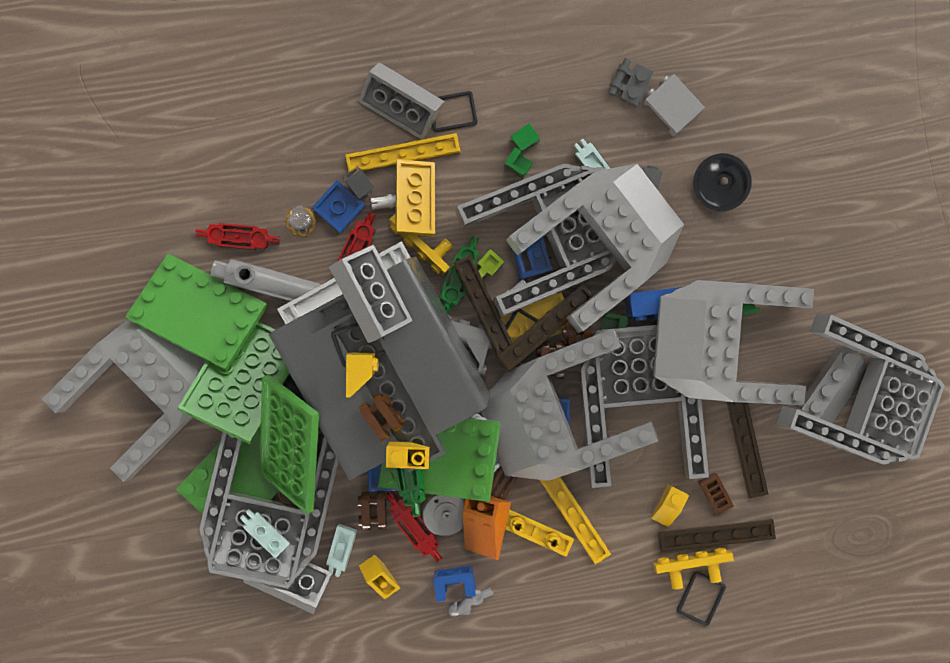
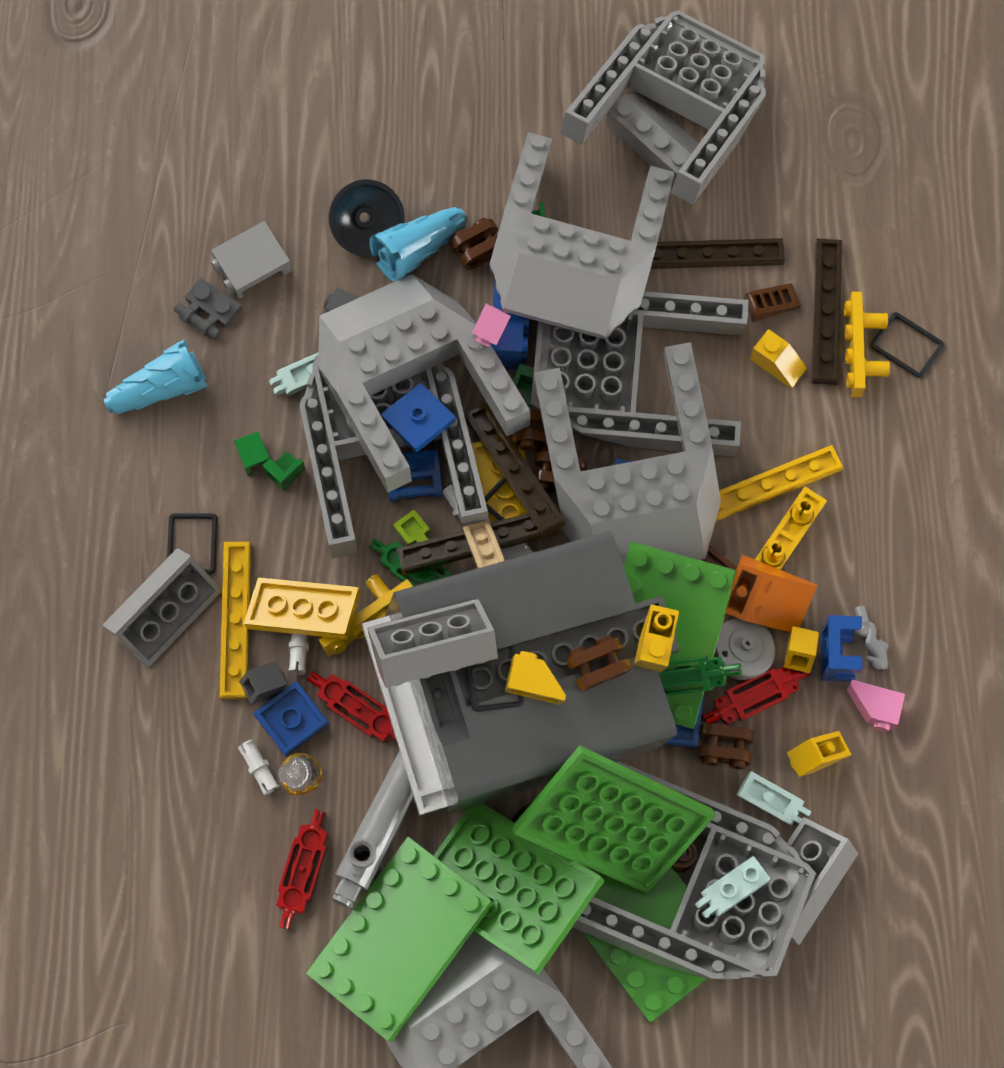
camera: 80 degrees left, 15 degrees down
(300, 192) = (258, 767): none -> white pin
(420, 614) = (876, 704): none -> bright pink slope
(451, 554) = (801, 649): none -> yellow brick
(474, 318) = (483, 543): none -> tan tile
(567, 251) = (418, 417): none -> blue plate
(568, 63) = (165, 377): none -> medium azure cone
(645, 290) = (490, 325): none -> bright pink slope
(707, 218) = (410, 243): none -> medium azure cone
(719, 257) = (475, 243): none -> reddish brown brick

